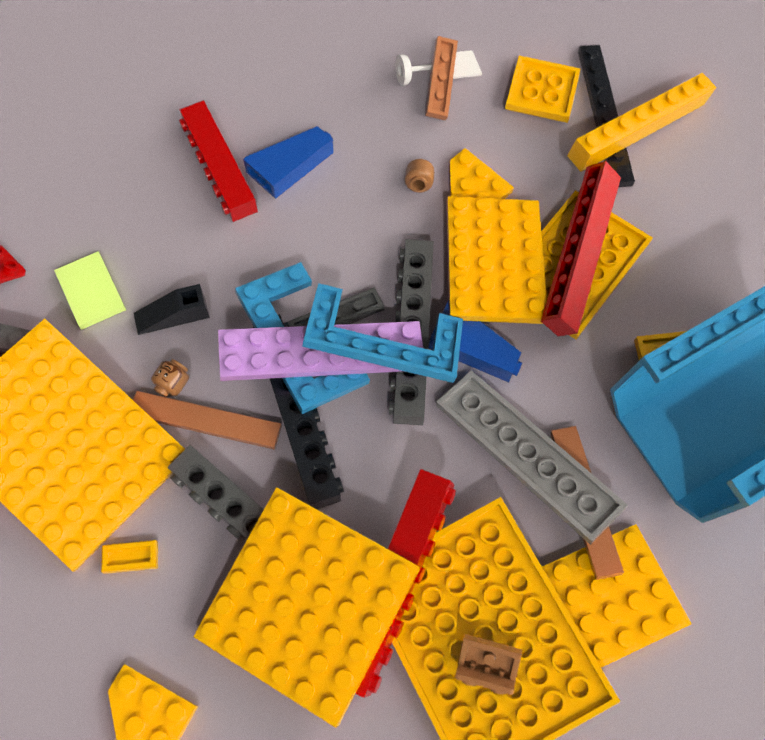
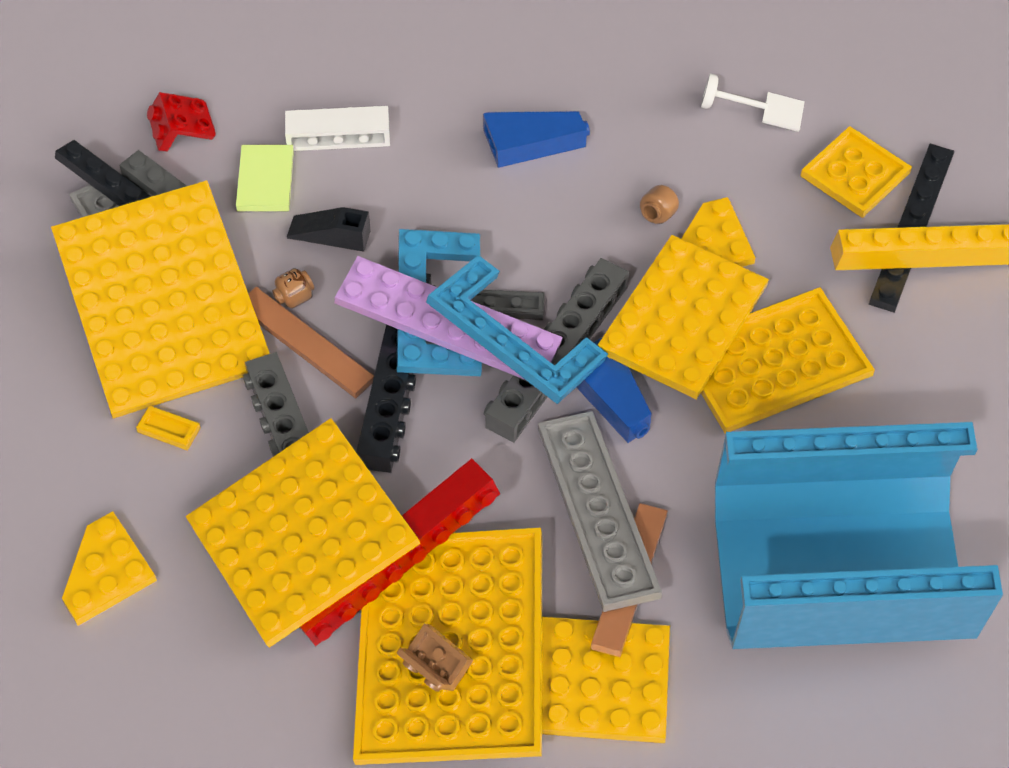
camera: 30 degrees right, 10 degrees down
(128, 220) = (337, 128): none -> white brick
(218, 161) = (459, 106): red brick -> none
(441, 78) = (745, 115): nougat plate -> none
(581, 250) = (779, 342): red brick -> none

